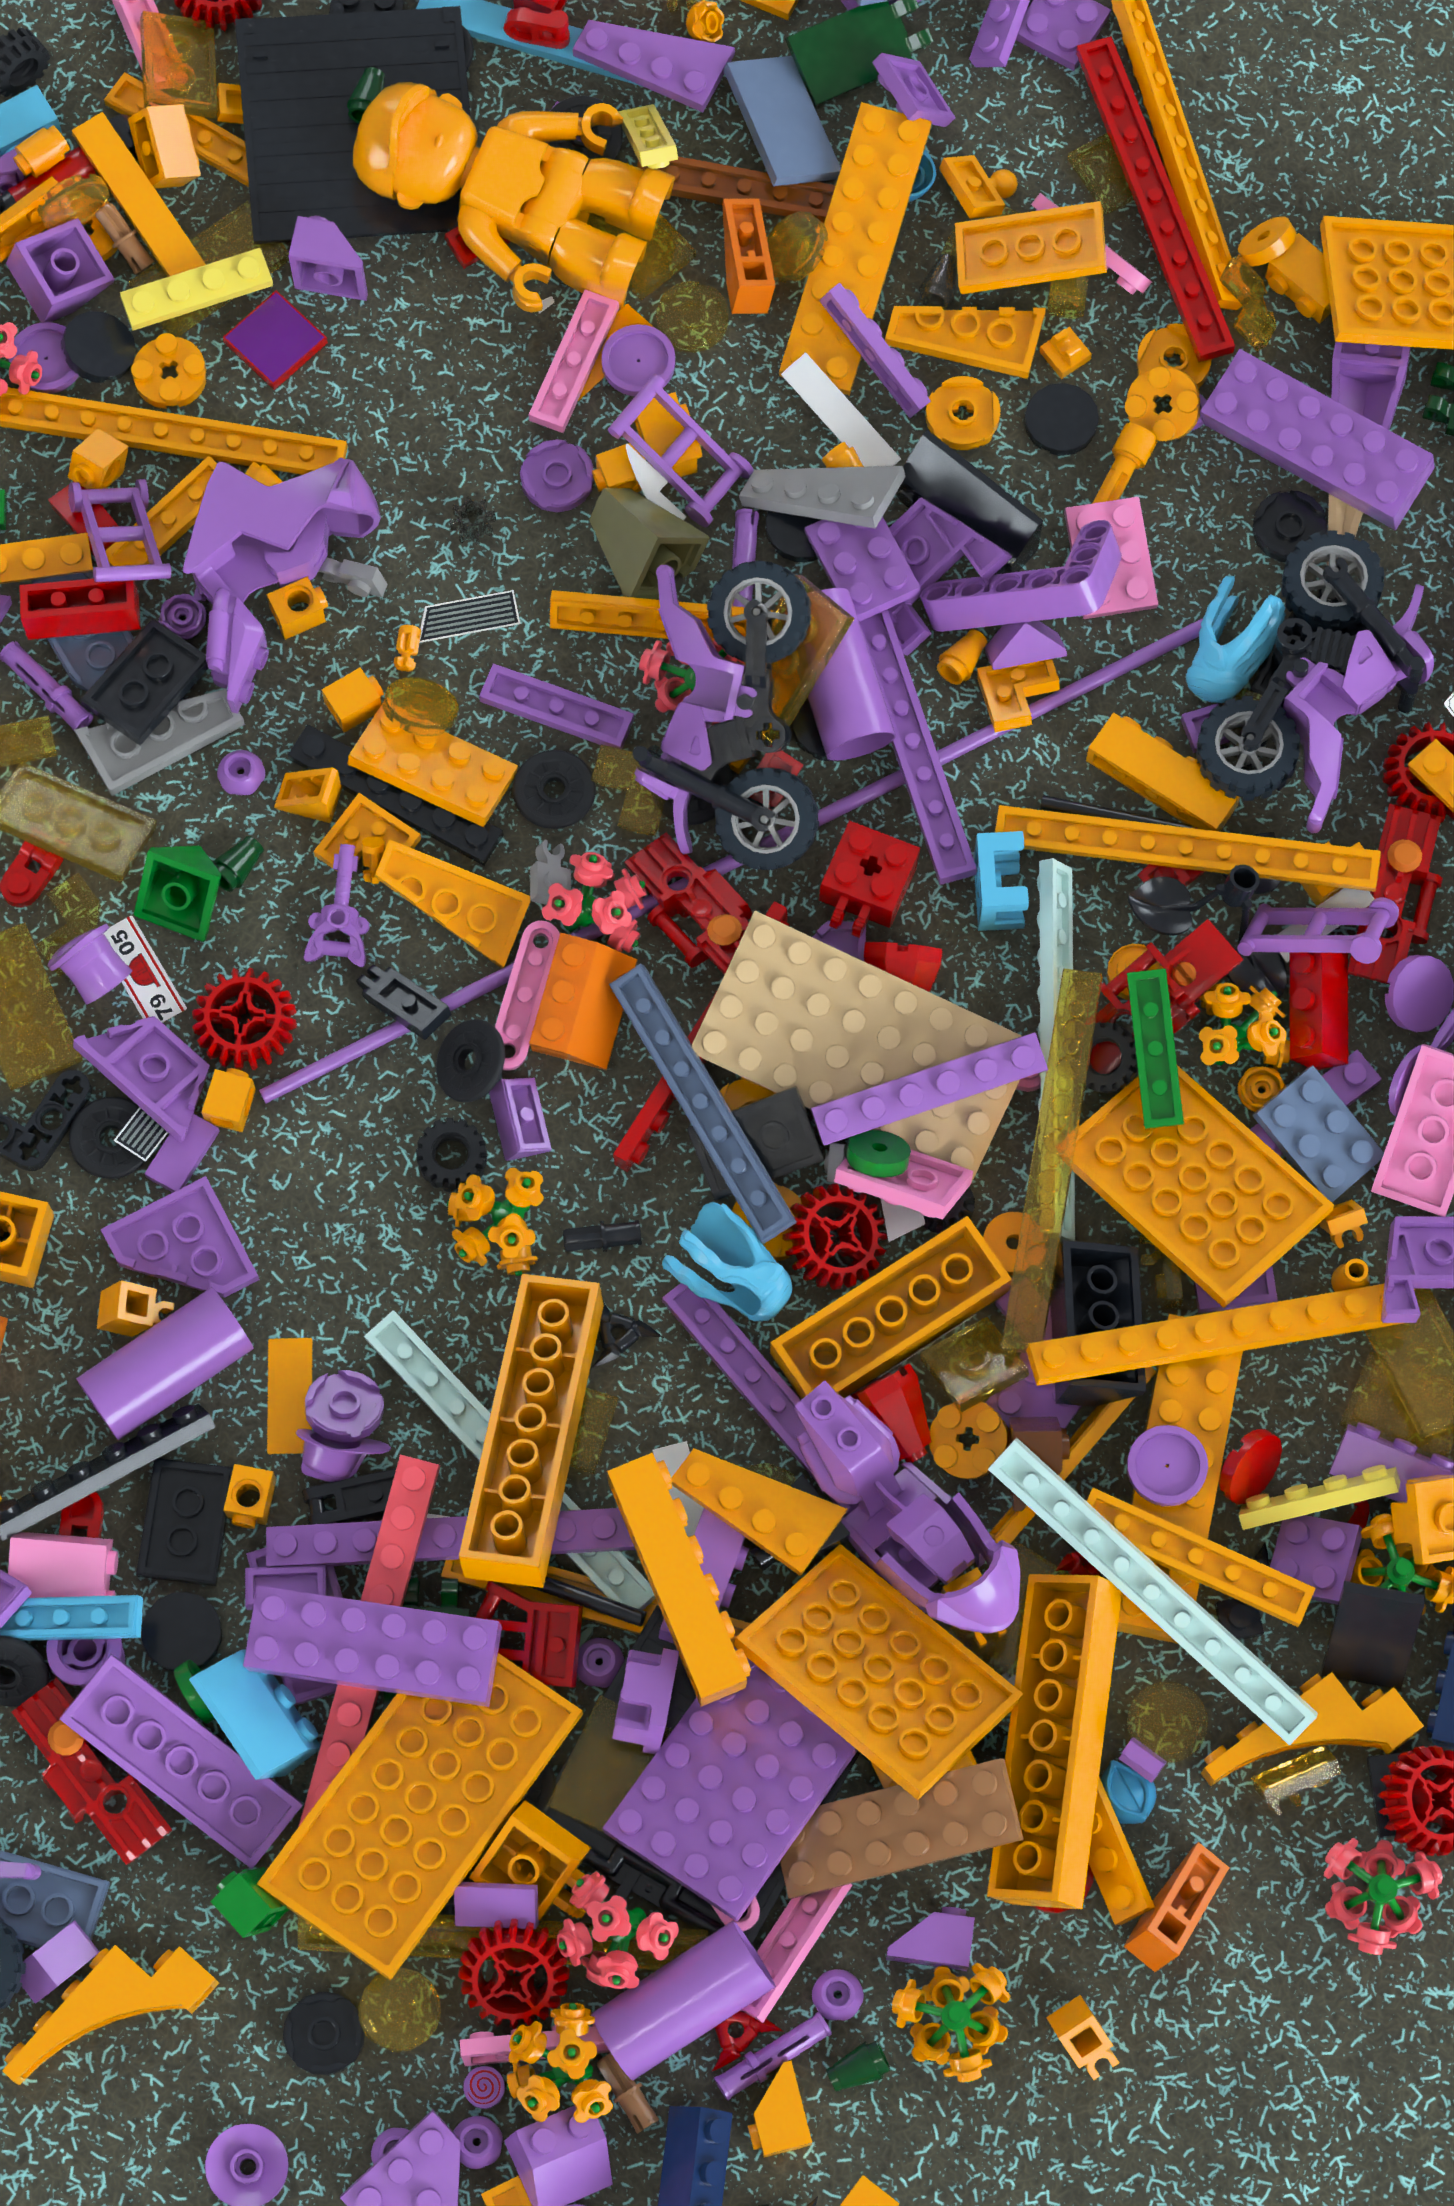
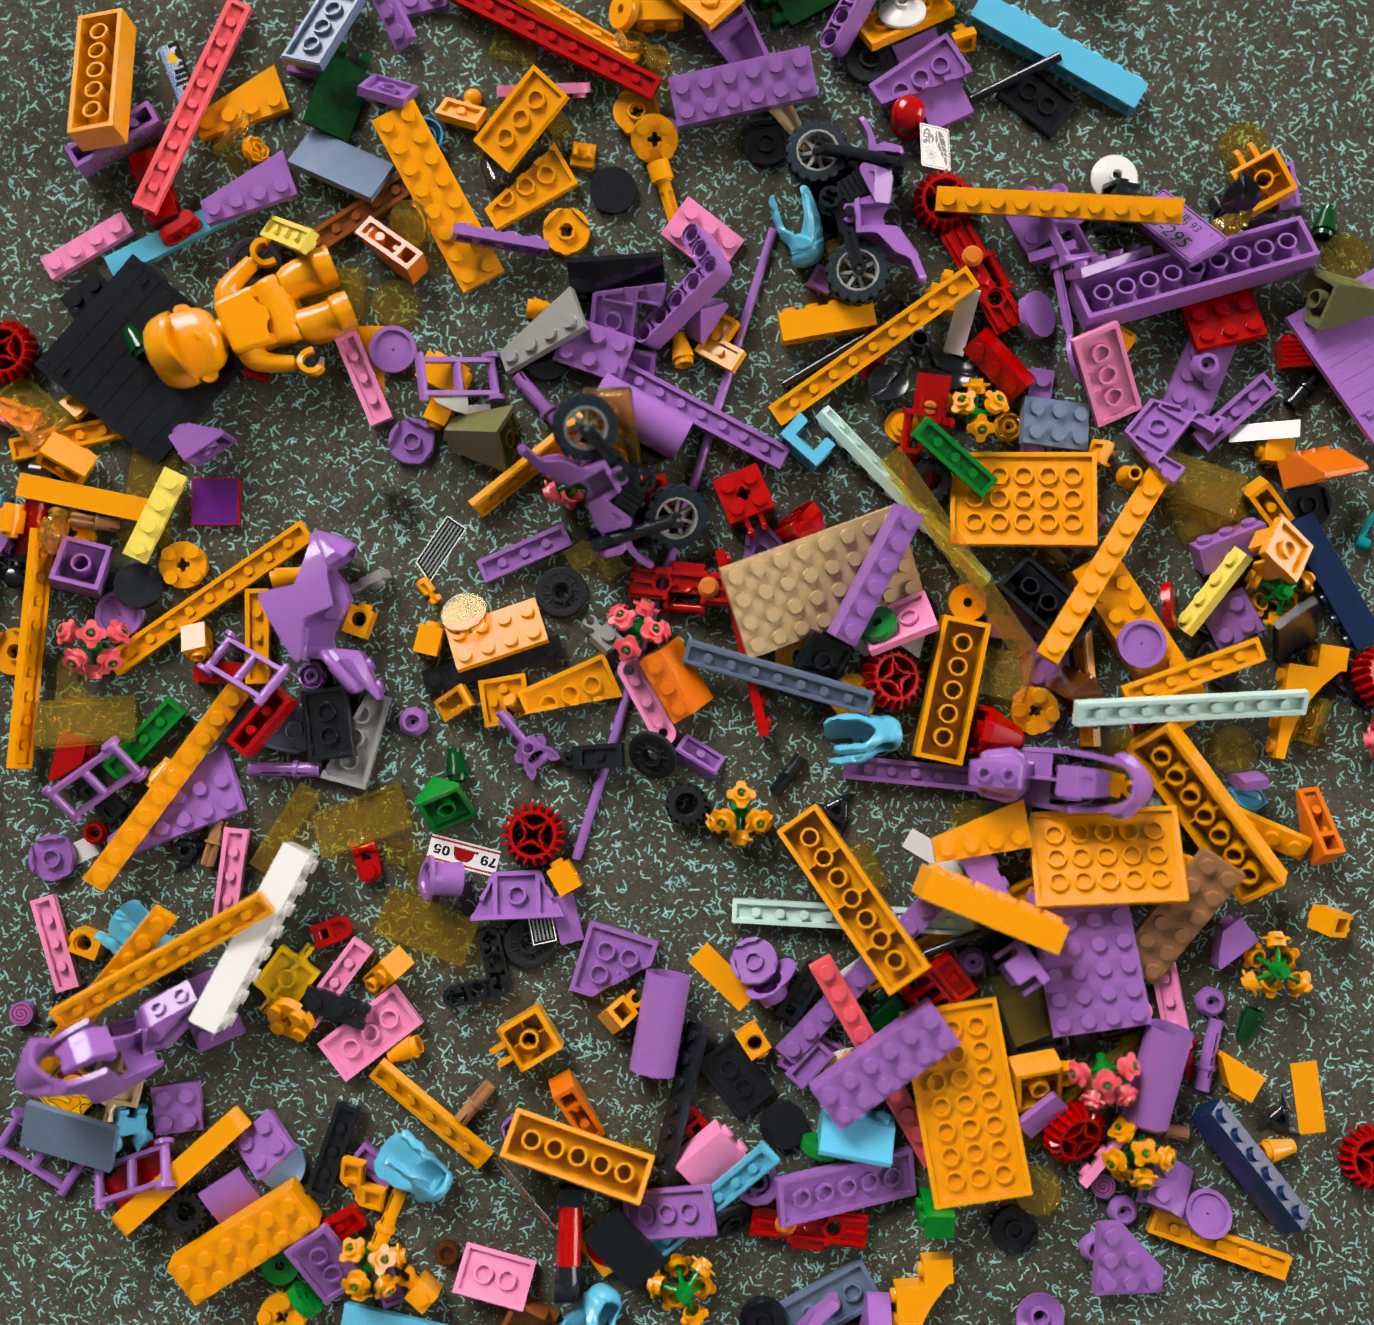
camera: 45 degrees left, 15 degrees up
(839, 413) = (512, 287): white sticker -> none
(1363, 946) = (1006, 320): medium lavender piece -> none

